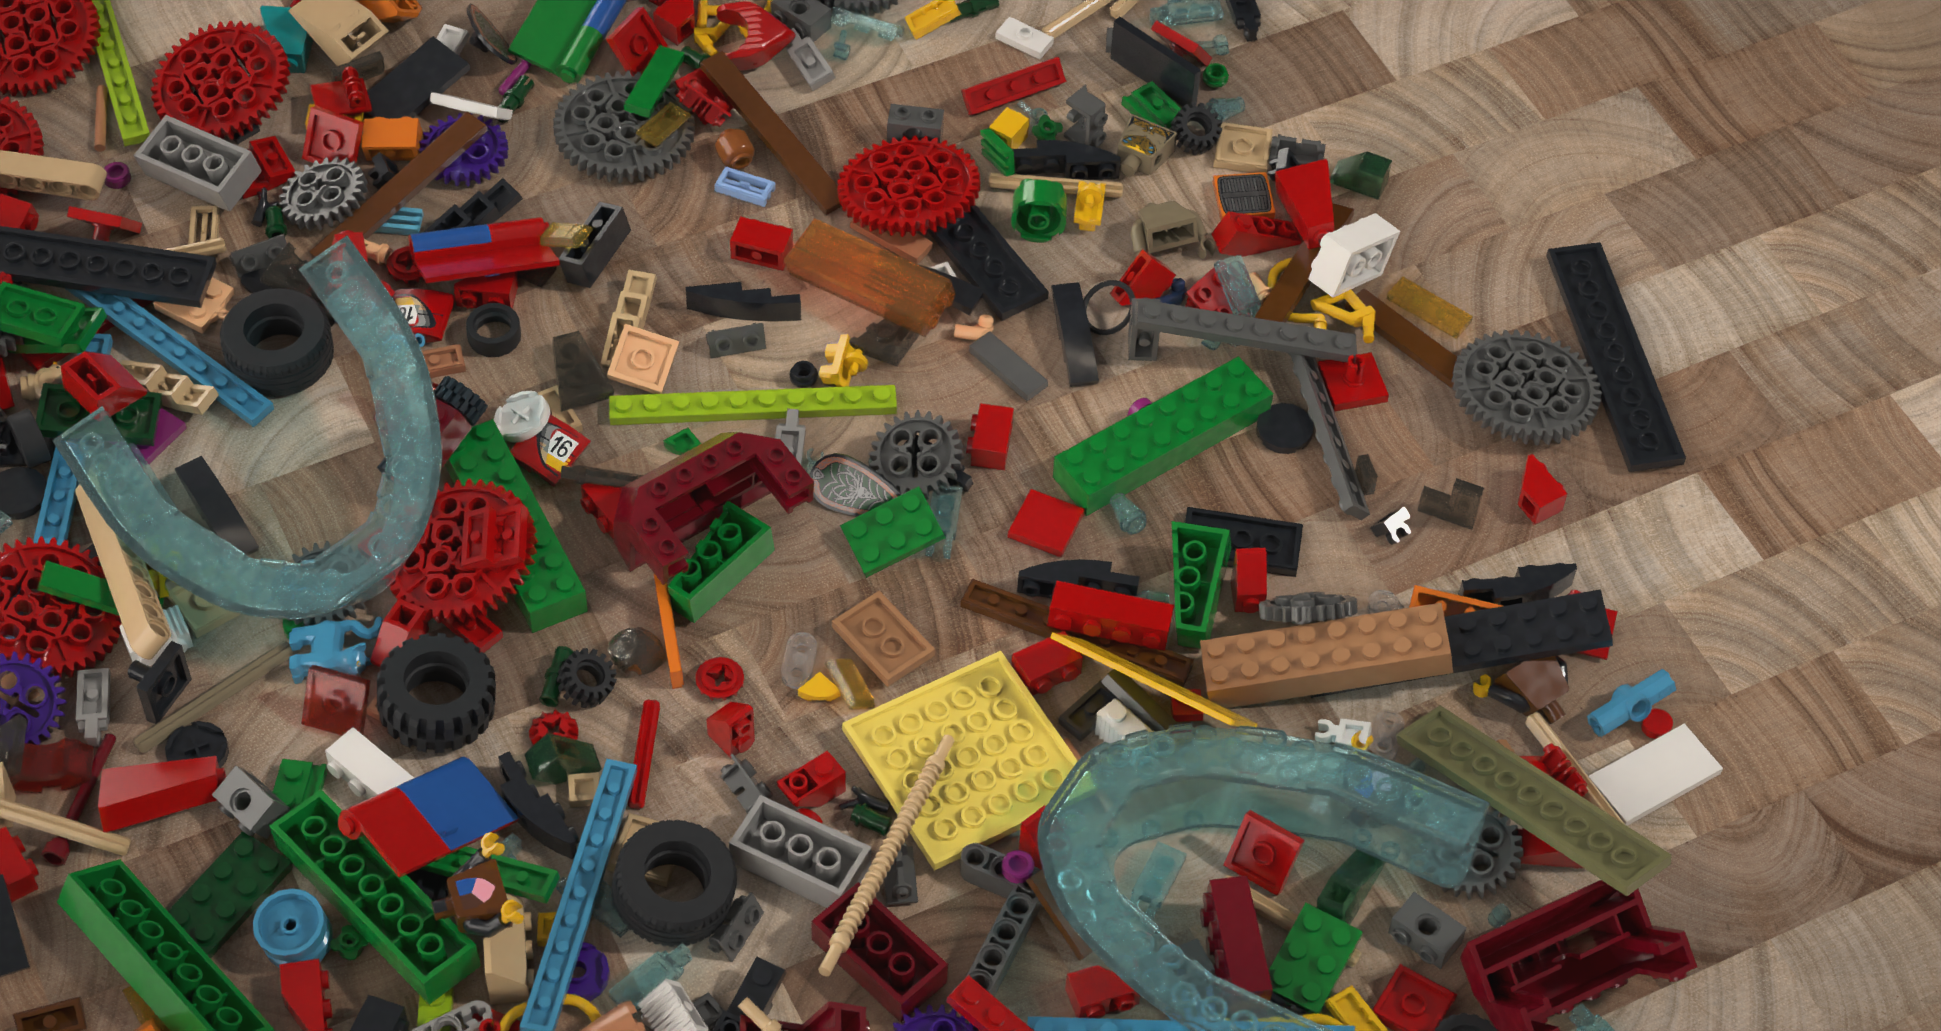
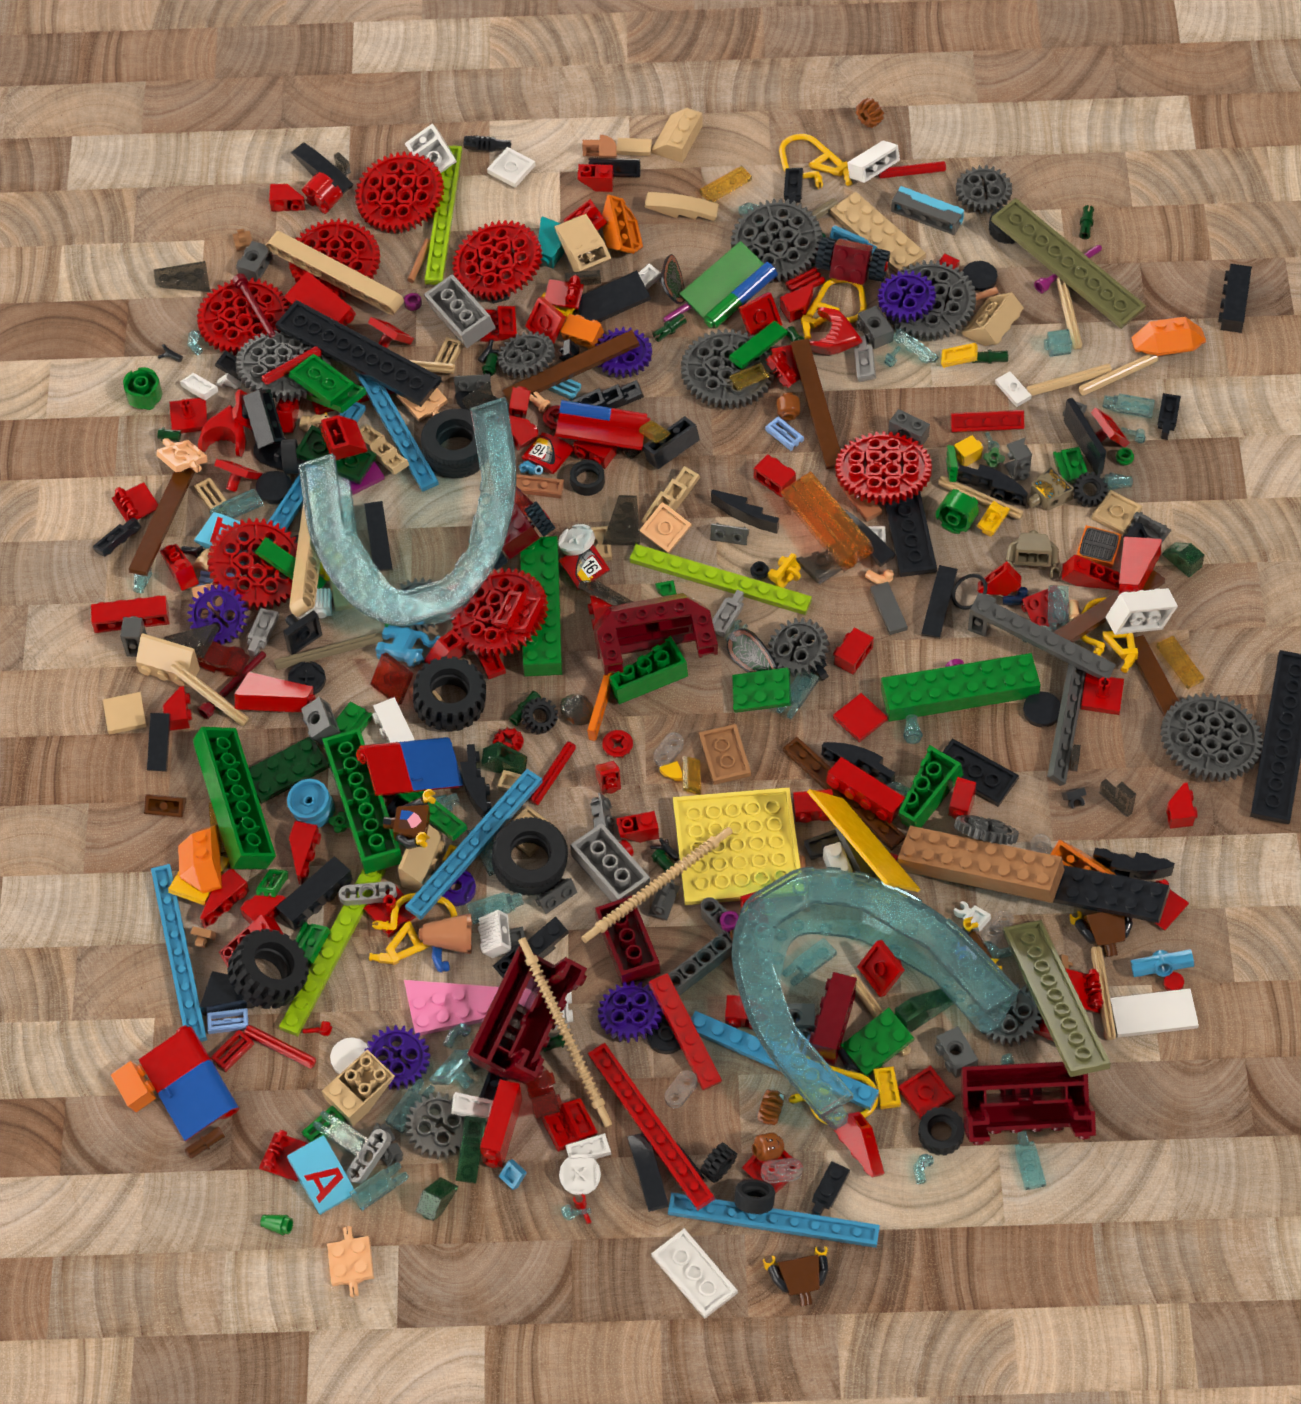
camera: 30 degrees right, 5 degrees up
(471, 106) = (639, 325): white tile -> none

